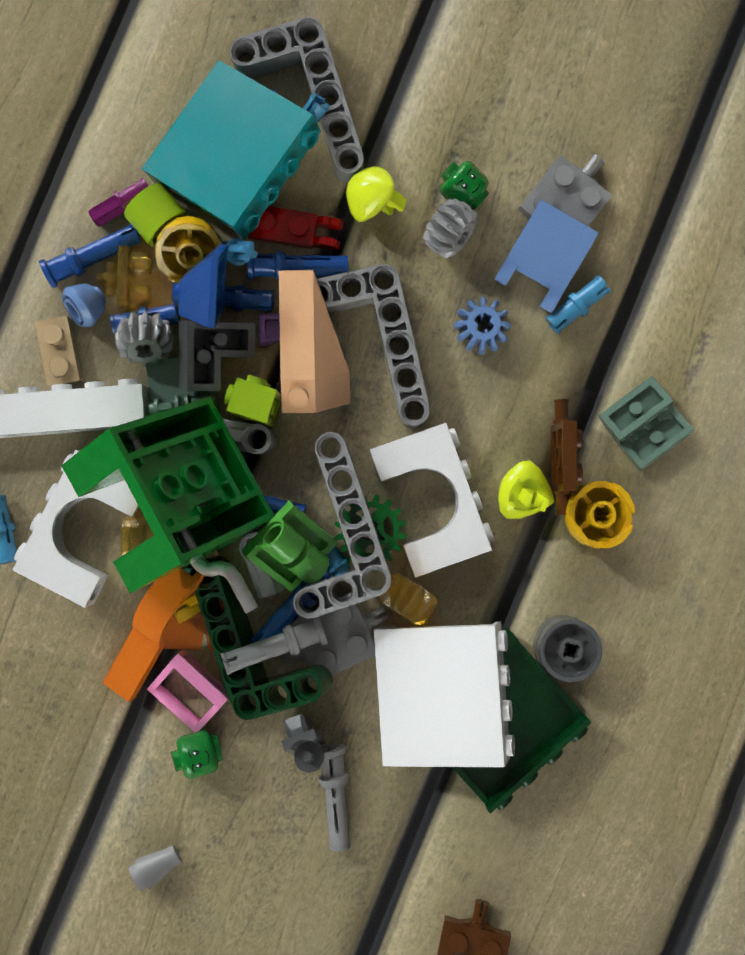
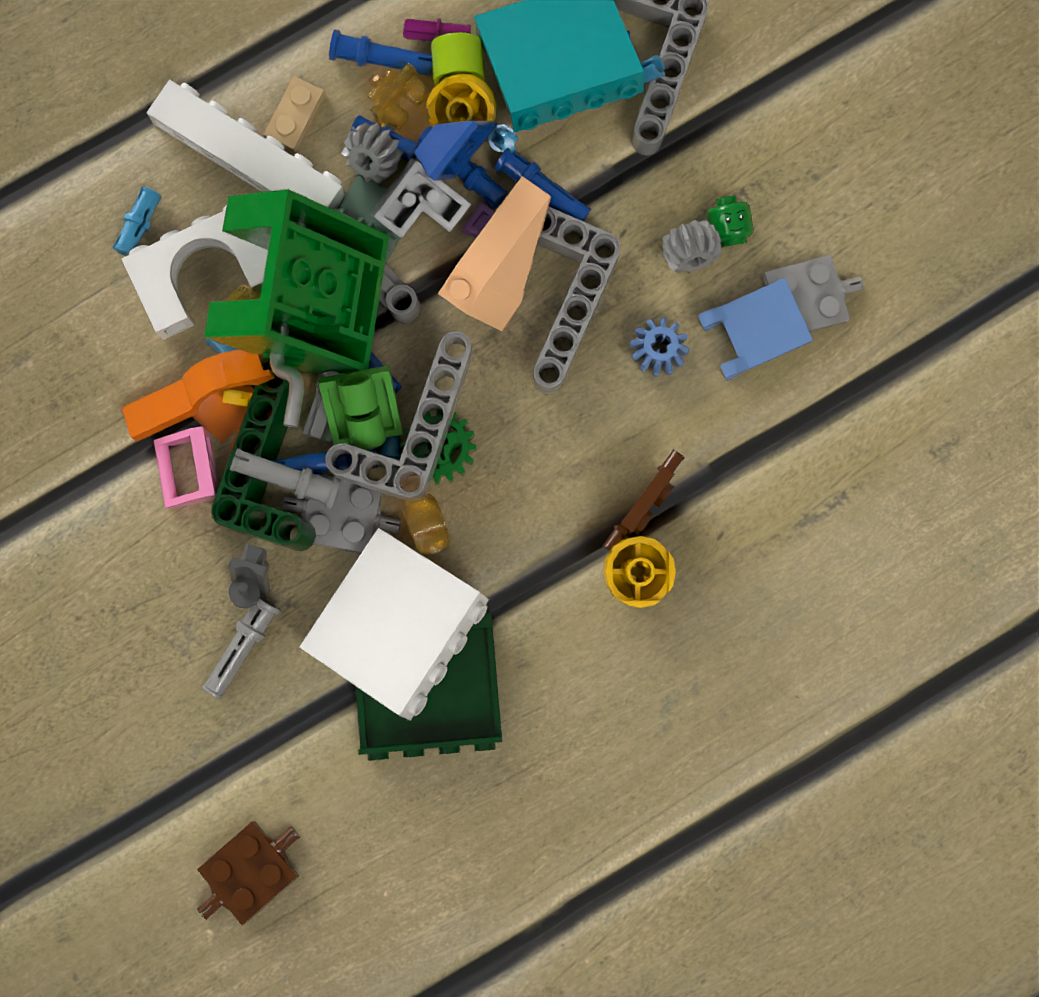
camera: 35 degrees right, 5 degrees down
(84, 303) = (344, 90): medium blue cone -> none
(154, 867) = (45, 591): light grey cone -> none
(197, 754) = (153, 523): green head -> none
(253, 400) = (421, 267): lime brick -> none
(295, 229) = (563, 155): red hinge -> none
(372, 192) = (649, 171): neon yellow piece -> none
(464, 534) = (541, 421): white arch -> none
(524, 491) = (591, 508): neon yellow piece -> none
(578, 304) = (753, 388): dark azure pin -> none
(584, 648) = (544, 656): dark grey wheel -> none
(645, 424) = (737, 531): sand green slope -> none

